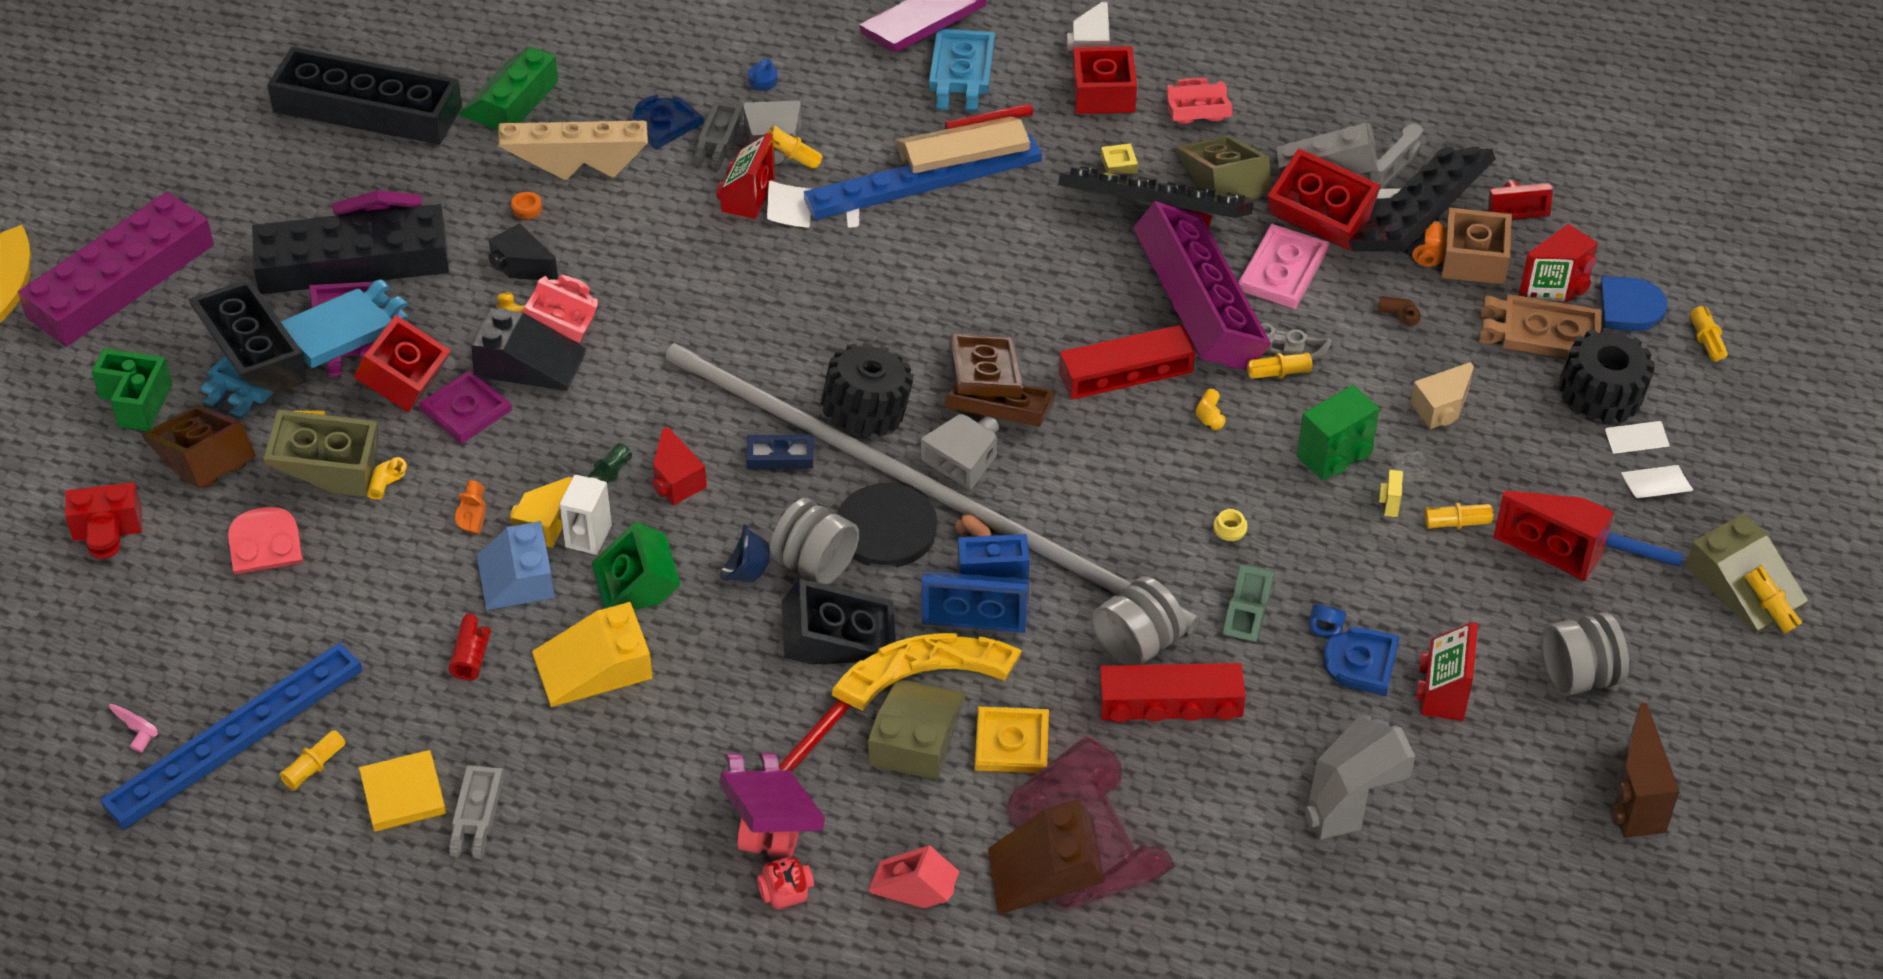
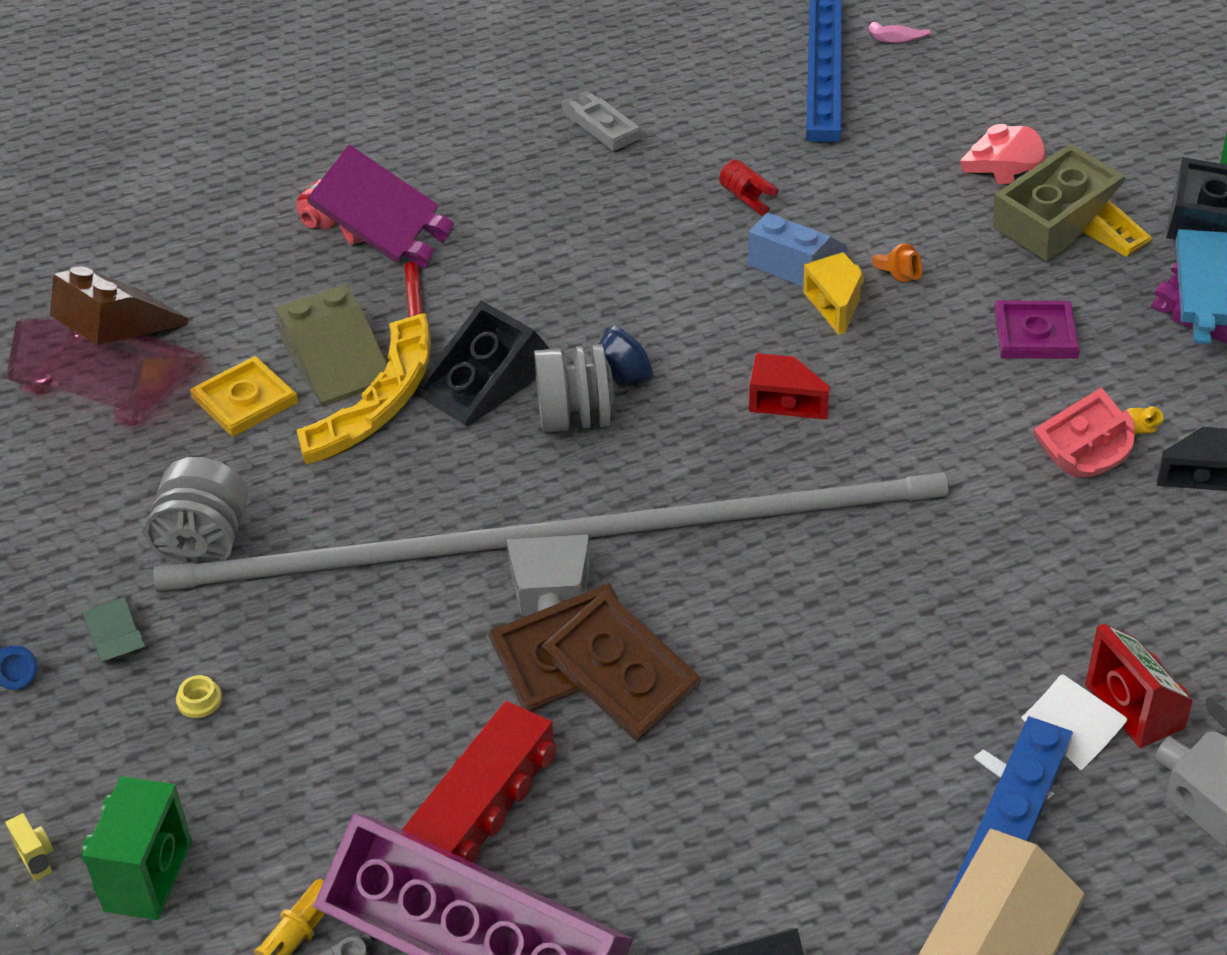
camera: 140 degrees right, 5 degrees down
(102, 516) = (1130, 90): red brick -> none
(201, 445) = (1150, 159): reddish brown slope -> none
(312, 760) = (752, 80): yellow axle -> none
(384, 475) = (1004, 243): yellow arm -> none
(402, 363) = (1118, 289): red brick -> none
(402, 790) = (669, 106): yellow tile -> none
(524, 352) = (1051, 377): black slope -> none
(585, 514) = (789, 288): white brick -> none
(594, 656) = (644, 241): yellow slope -> none
(608, 467) = (842, 354): clear green axle -> none
(636, 569) = (698, 300): green slope -> none
(780, 451) = (718, 465): dark blue piece -> none
(795, 148) = (1153, 761): yellow axle -> none
(866, 389) = (698, 542): black wheel -> none
(893, 524) = (546, 477): black tile -> none
(915, 878) = (220, 256): coral slope -> none
(971, 525) = (453, 522): nougat arm -> none
(975, 601) = (379, 443): blue slope -> none
(994, 556) = (396, 487): blue panel -> none
(1171, 691) = (108, 507): red brick -> none
(1208, 412) = (329, 802): yellow arm -> none

